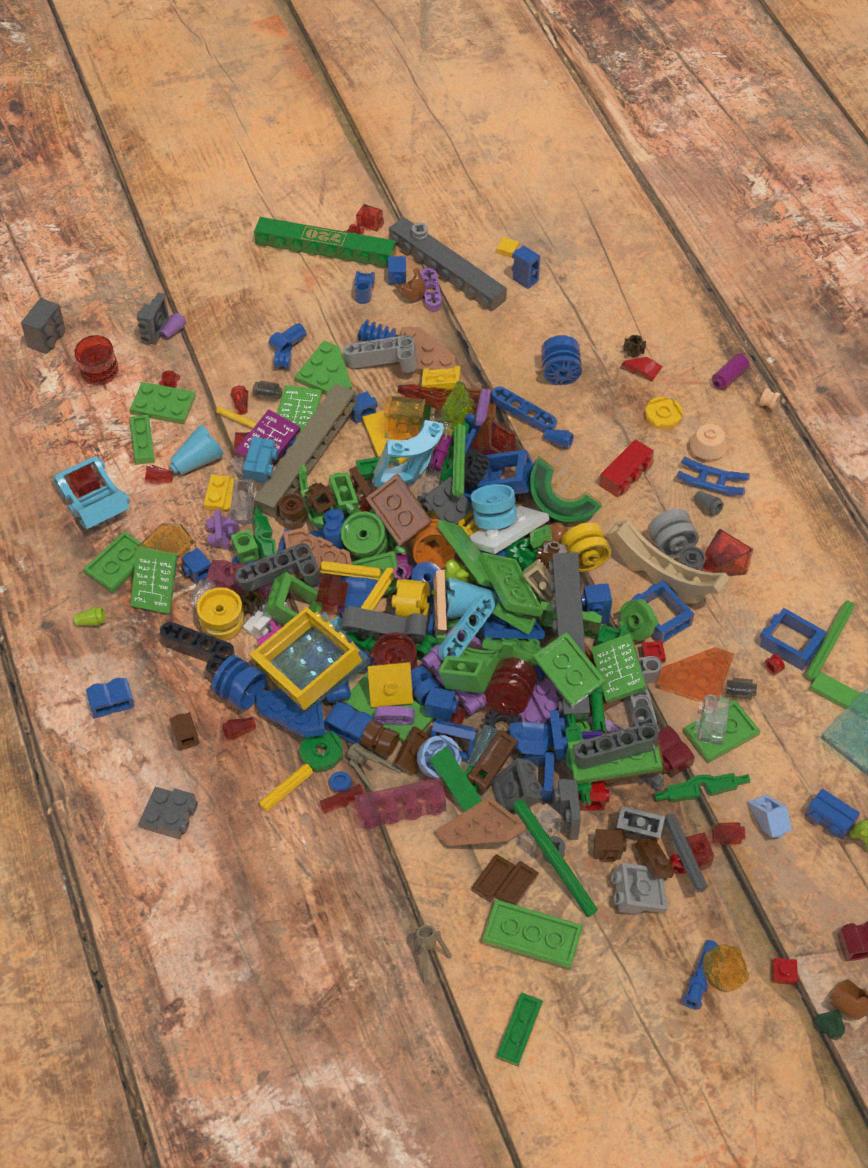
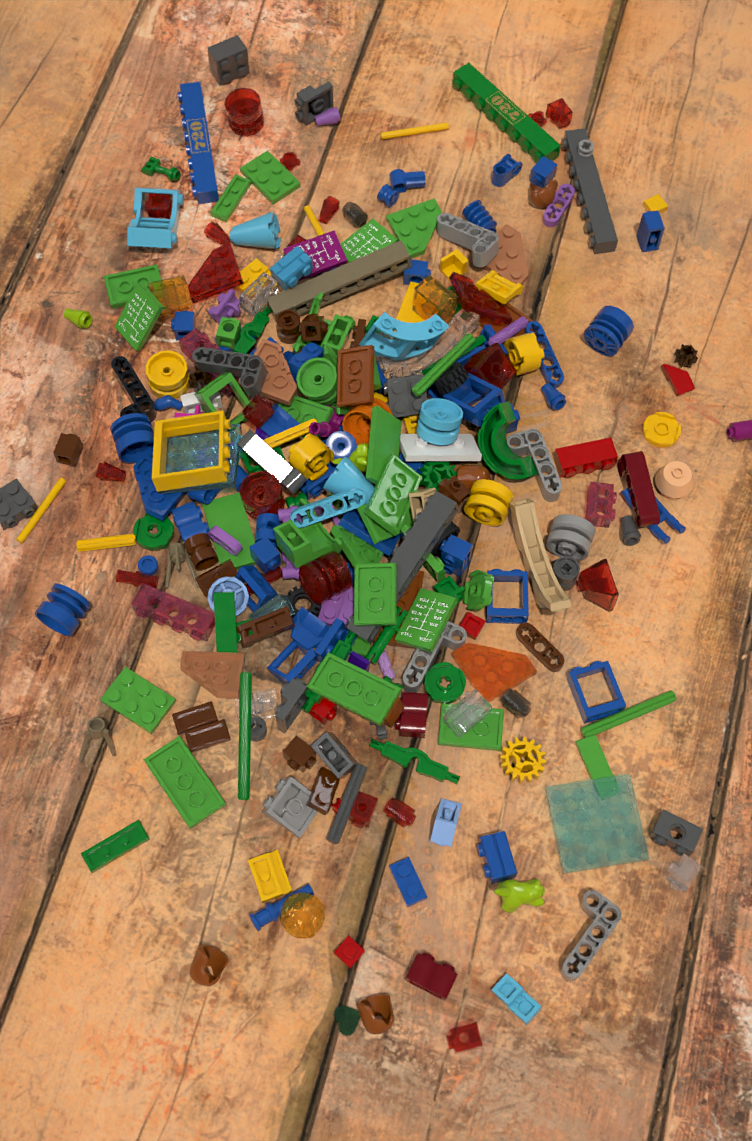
camera: 35 degrees right, 10 degrees up
(44, 451) = (154, 166): none -> green hinge
(73, 409) = (199, 143): none -> blue brick
(110, 697) = (40, 388): blue brick -> none
(189, 504) = (216, 274): none -> clear red plate
(200, 792) = (41, 510): none -> yellow bar
(201, 587) = (171, 344): clear brick -> none
(238, 636) = (166, 402): none -> blue arm
(254, 299) = (413, 131): none -> yellow bar
(303, 864) = (62, 609): none -> blue wheel
(349, 570) = (283, 402): yellow axle -> none
(387, 382) = (453, 262): none -> yellow panel
(390, 684) = (238, 514): yellow plate -> none
(431, 897) = (138, 700): none -> bright green plate
(439, 602) = (317, 489): light nougat tile -> none
(440, 453) = (440, 349): magenta pin -> none
(457, 401) = (479, 314): clear neon green plate -> none
(511, 414) = (524, 353): none -> yellow brick
(517, 783) = (267, 660): dark grey plate -> none
(539, 535) = (458, 469): bright green plate -> none
(613, 502) = (541, 465): none -> light grey beam
(615, 741) = (359, 677): dark grey beam -> none
(668, 494) = (598, 504): none -> clear pink brick
(670, 957) = (269, 876): none -> yellow plate
(671, 700) = (439, 693): none -> green plate
(686, 1065) = (207, 956): none -> dark orange hair
(691, 462) = (641, 492): none -> dark red beam
(726, 629) = (554, 654): none -> reddish brown beam
(774, 664) = (561, 702): red bush -> none
(780, 883) = (408, 882): none -> blue plate
(784, 728) = (515, 757): none -> yellow gear

